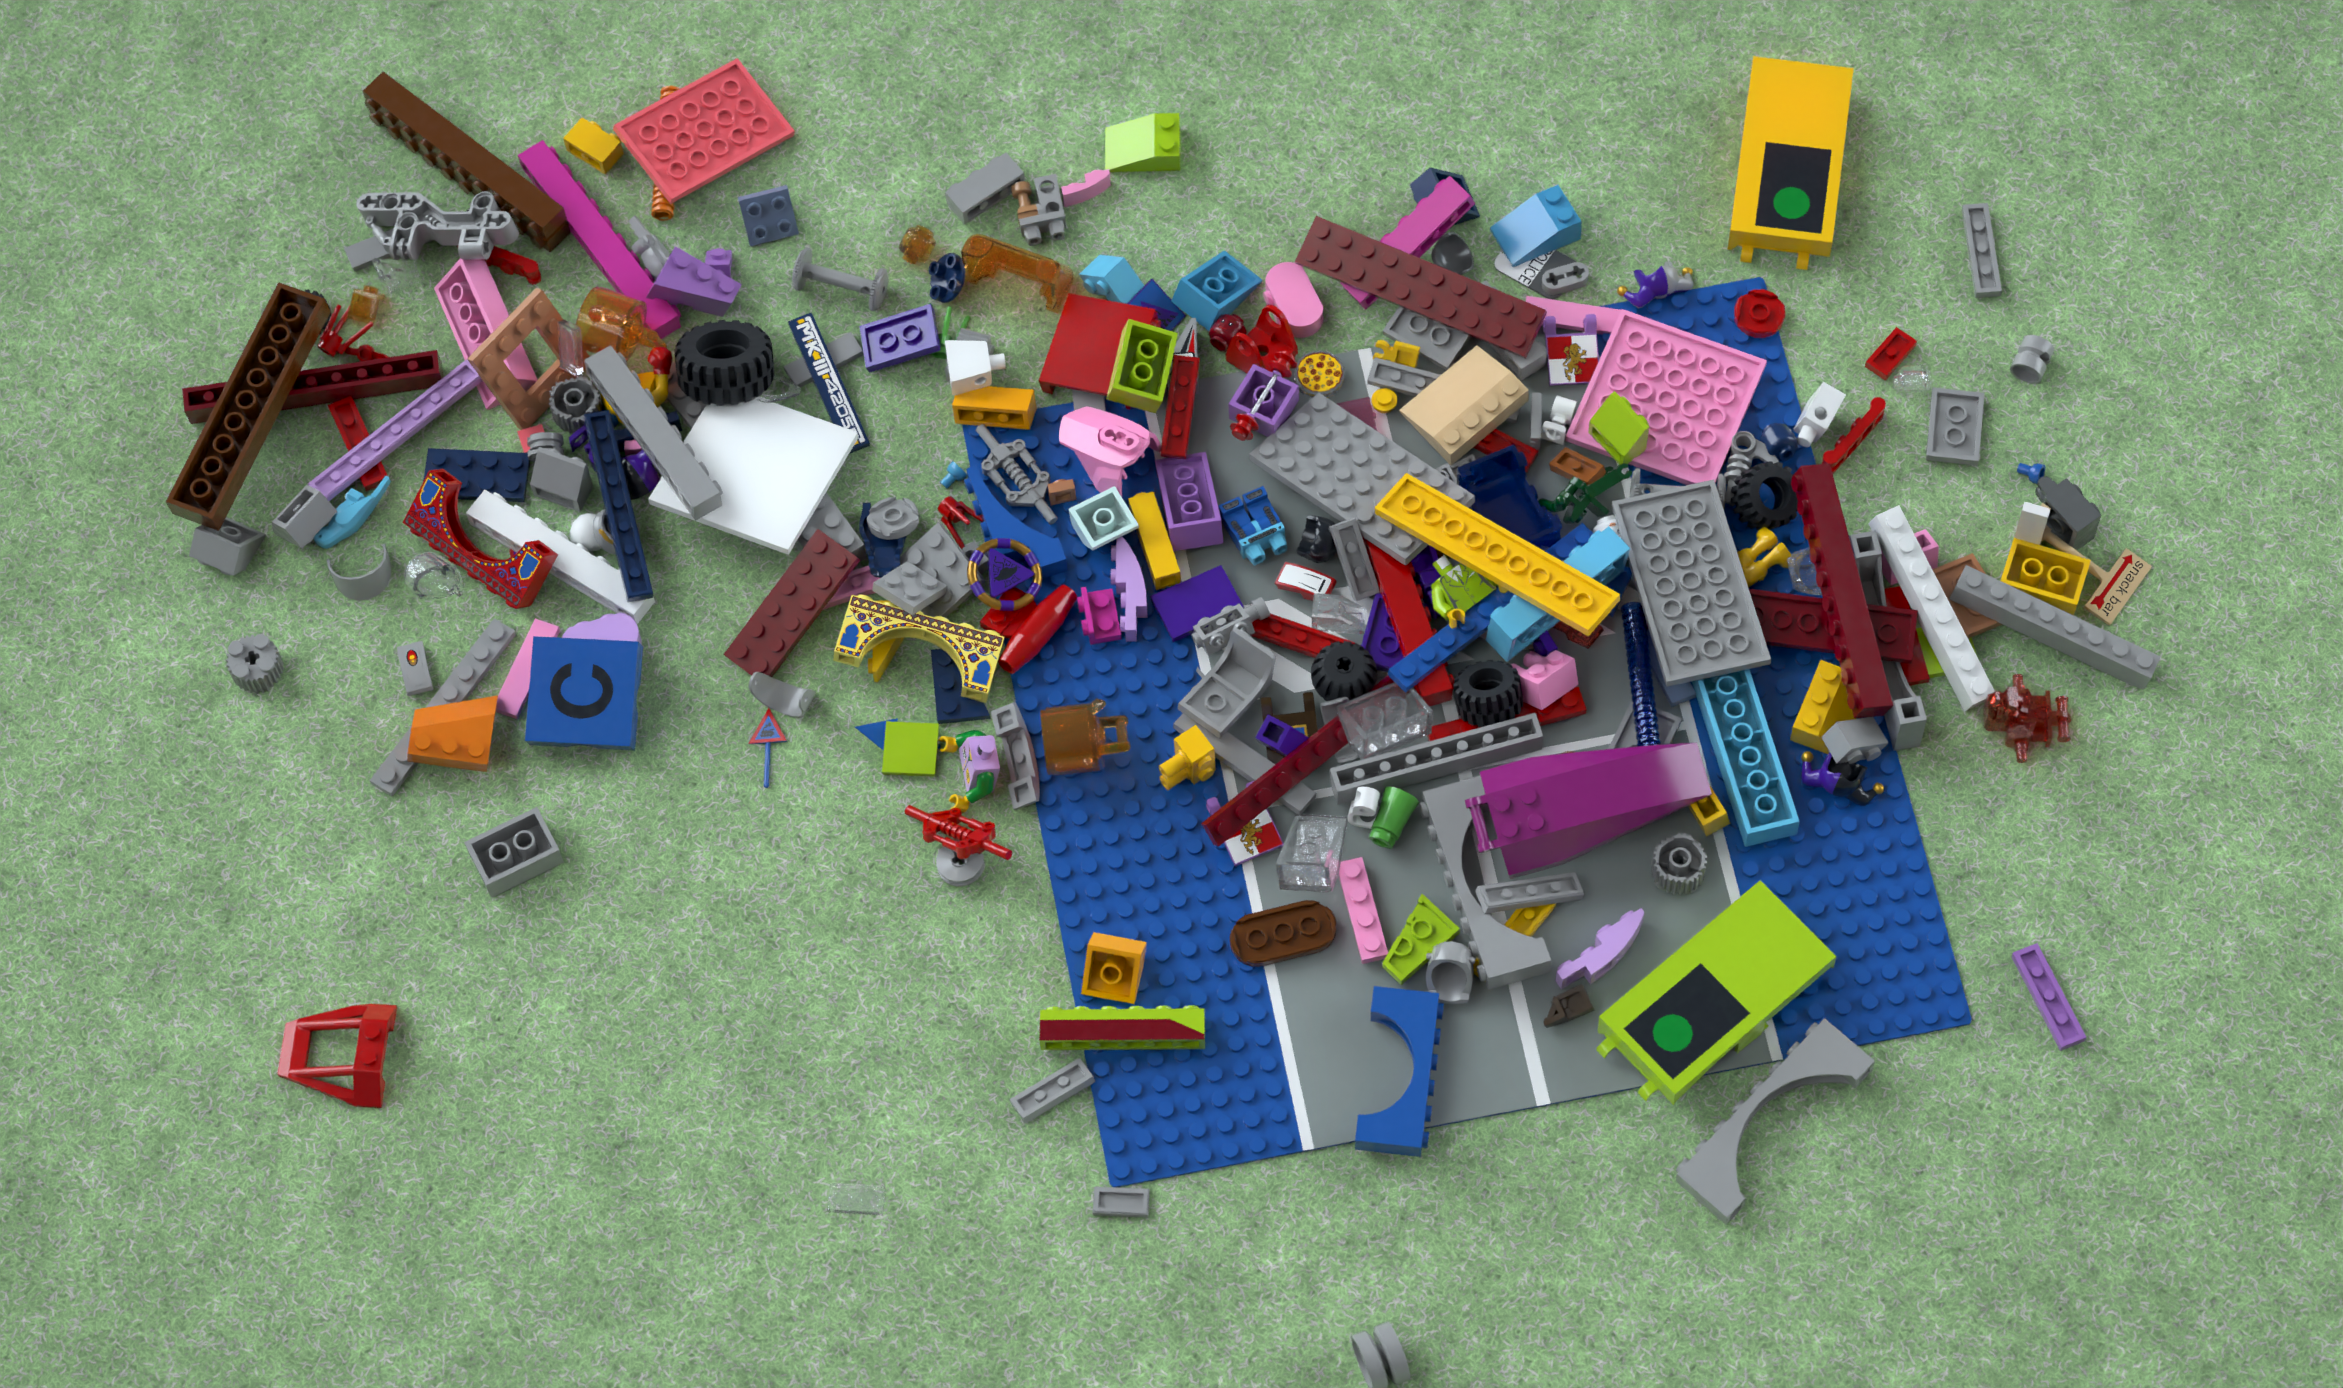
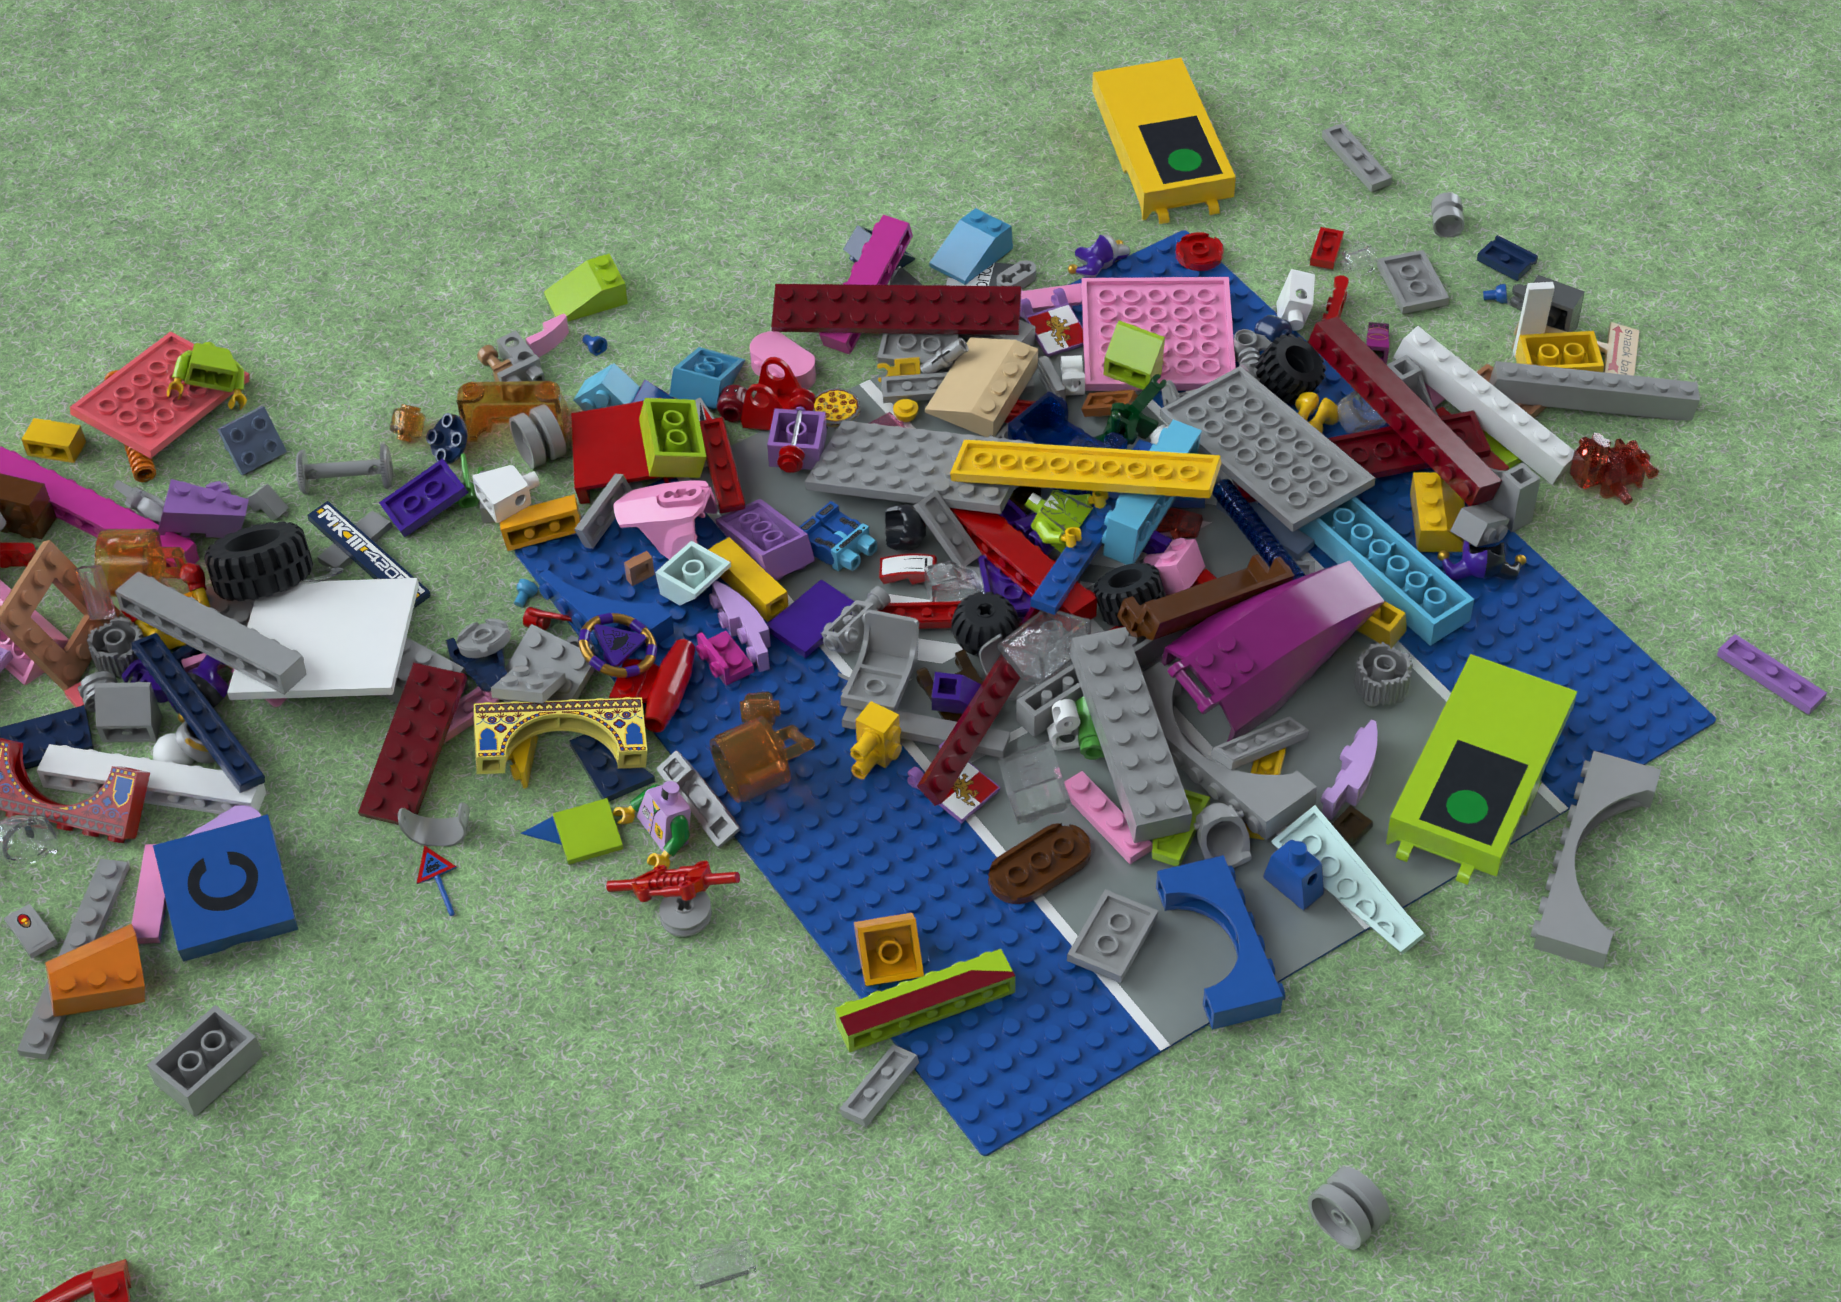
camera: 25 degrees left, 15 degrees down
(756, 122) = (209, 368): none -> lime torso
(757, 284) = (267, 500): none -> light grey piece
(984, 188) = (451, 364): light grey brick -> none
(1003, 456) = (570, 559): light grey bar -> none
(1032, 307) = (537, 436): none -> light grey wheel
(1050, 418) = (601, 512): none -> light grey plate
(1105, 686) = (760, 705): none -> clear orange head
(1121, 1202) = (1001, 1166): light grey tile -> none
(1127, 211) = (595, 344): none -> blue piece
(1310, 1030) = (1112, 936): none -> light grey plate
(1410, 844) = (1130, 735): none -> light grey brick
(1449, 359) = (945, 357): none -> light grey pin
(1493, 1031) = (1296, 873): none -> blue torso
(1534, 1034) = (1352, 880): none -> light aqua wing
(1543, 733) = (1199, 602): none -> reddish brown panel
(1879, 487) = (1378, 338): none -> magenta leg
(2066, 432) = (1507, 258): none -> dark blue plate

